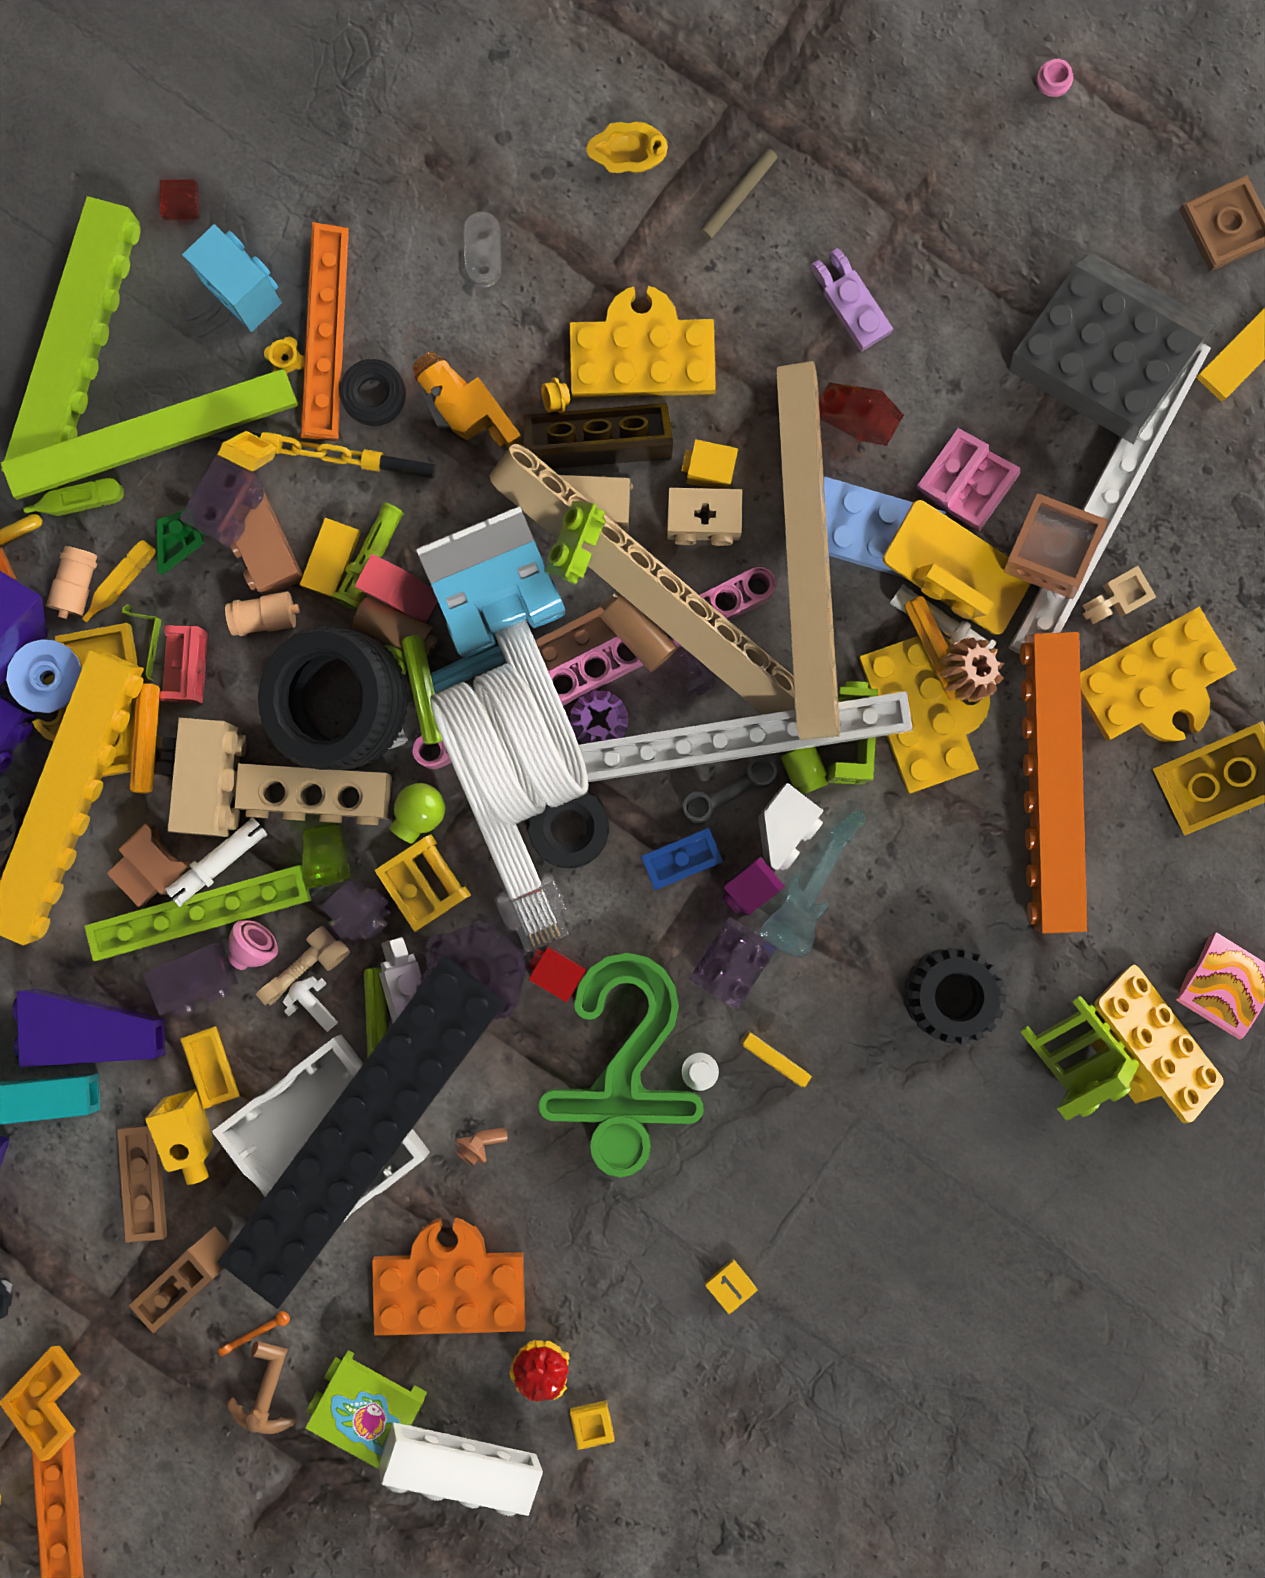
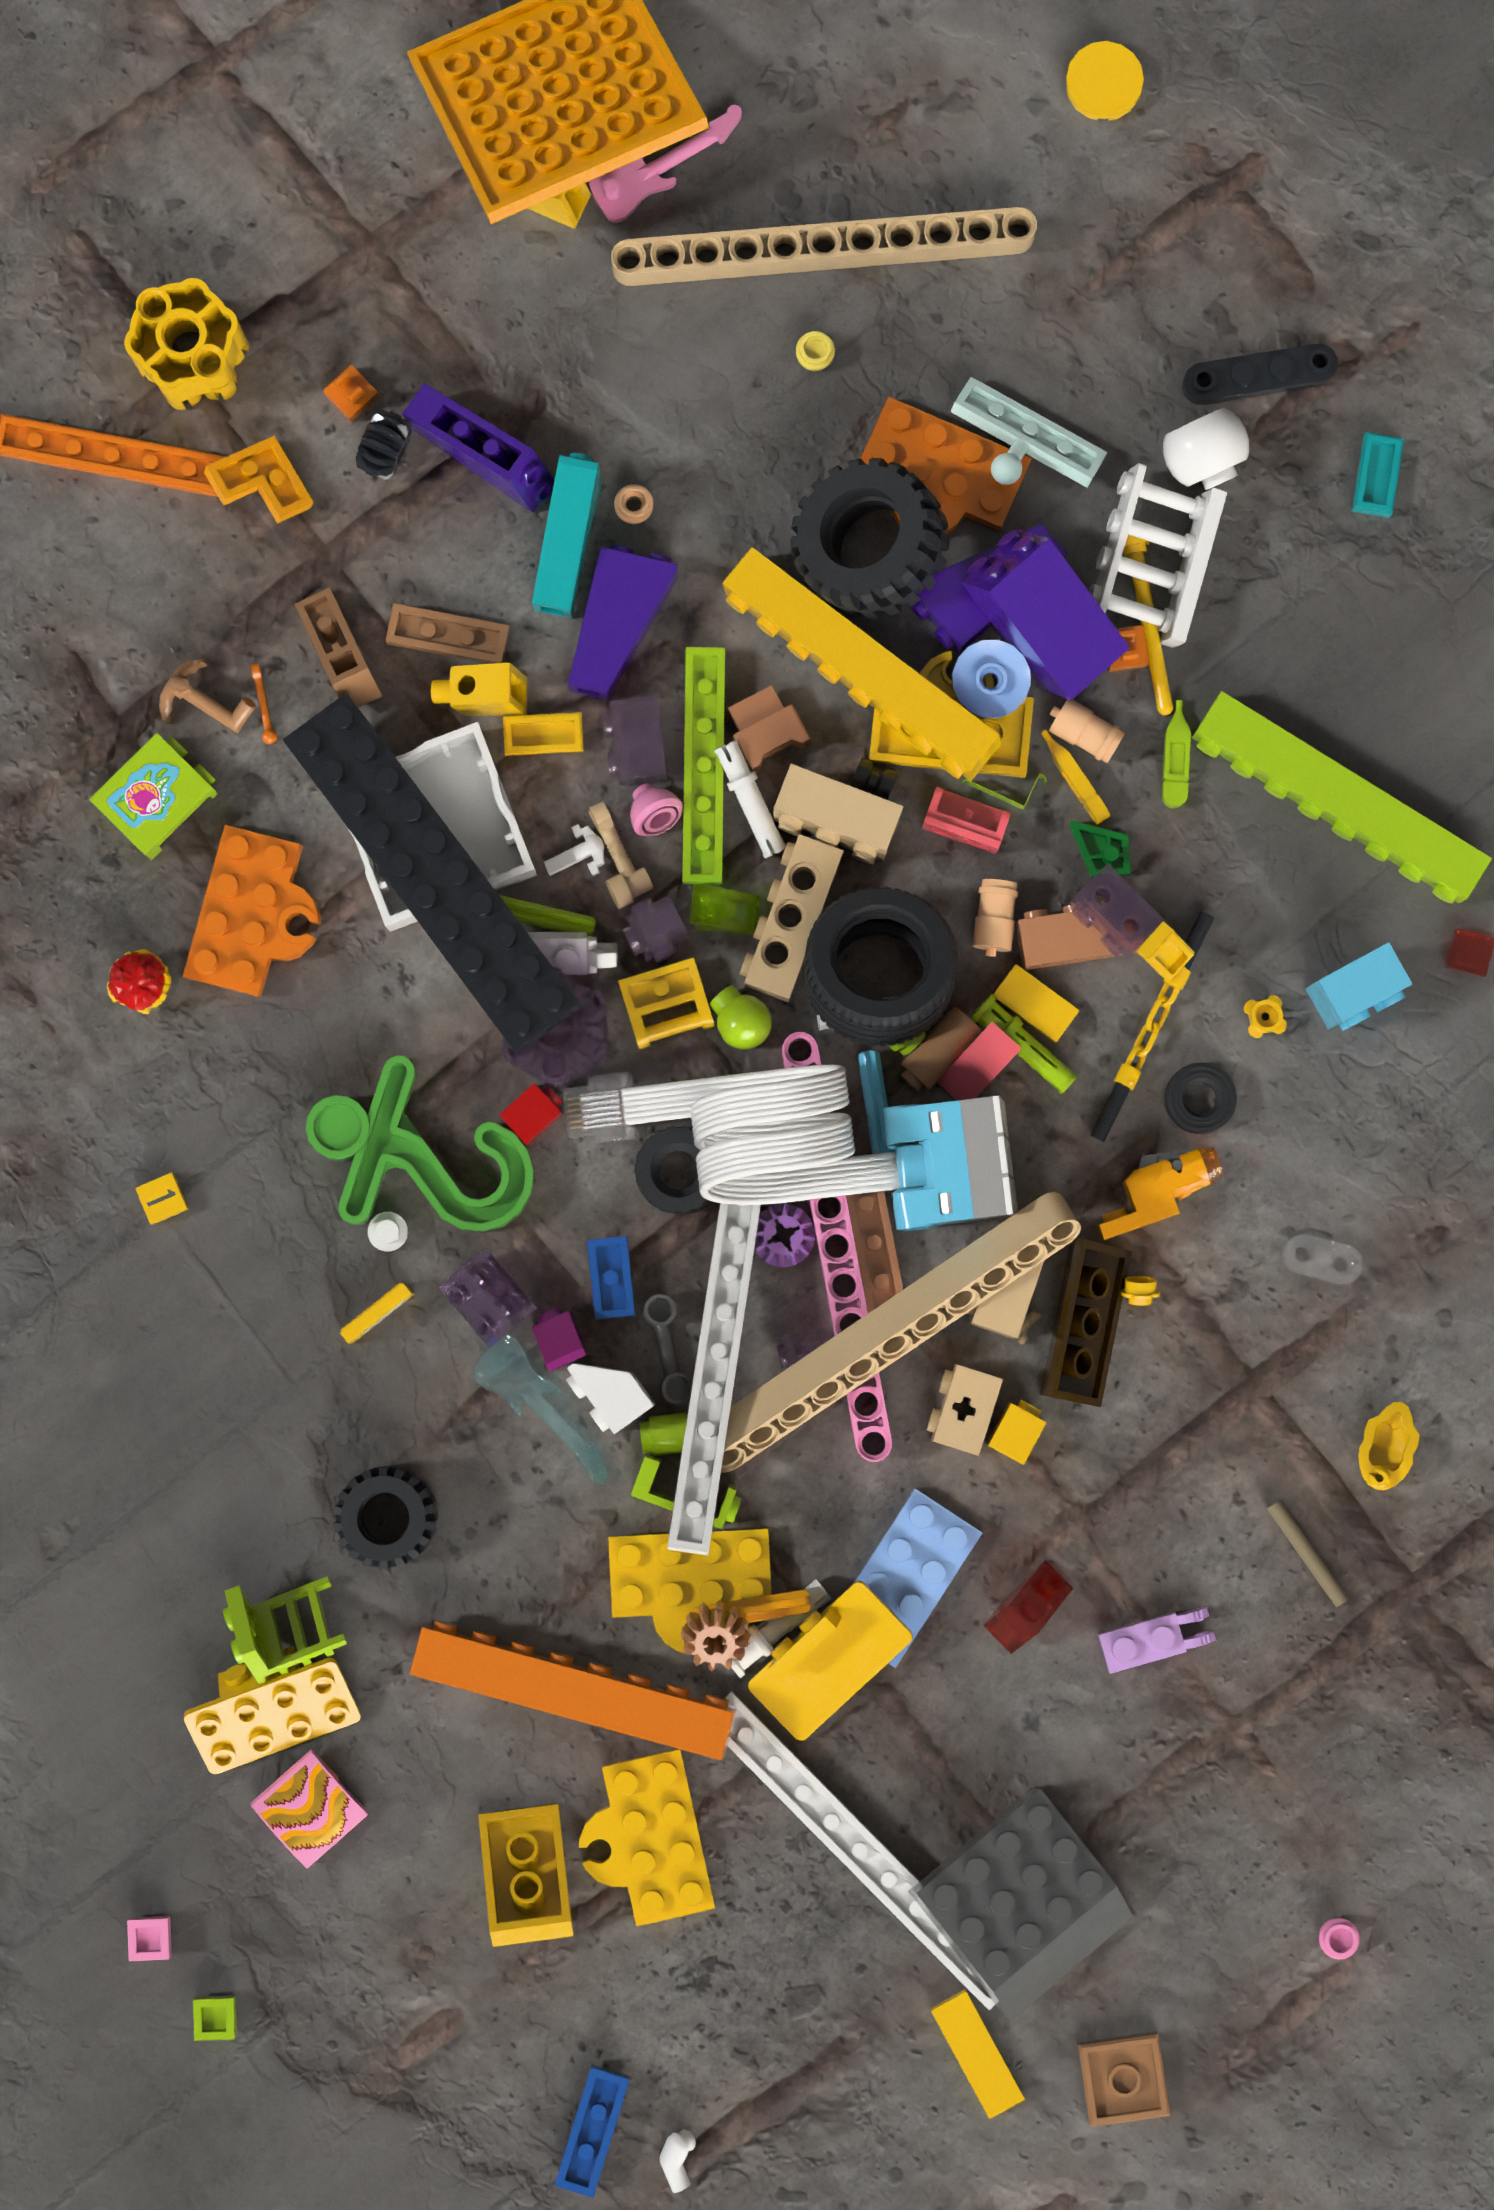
camera: 105 degrees right, 0 degrees up
(144, 739) = (896, 762): light orange axle -> none
(148, 434) = (1217, 855): lime tile -> none
(324, 332) = (1280, 1066): orange tile -> none
(421, 687) = (865, 1060): lime axle -> none
(459, 1470) = (68, 874): white brick -> none
(472, 1148) = (380, 976): nougat plate -> none
(580, 524) = (946, 1246): lime hinge -> none
(592, 1425) = (68, 1017): yellow tile -> none
(637, 631) = (856, 1299): medium nougat brick -> none
(642, 351) = (1163, 1397): yellow plate -> none
(807, 553) = (892, 1502): tan beam -> none
(968, 479) = (923, 1705): bright pink slope -> none
(1055, 546) = (819, 1766): piece -> none
(1124, 592) = (752, 1834): tan plate -> none

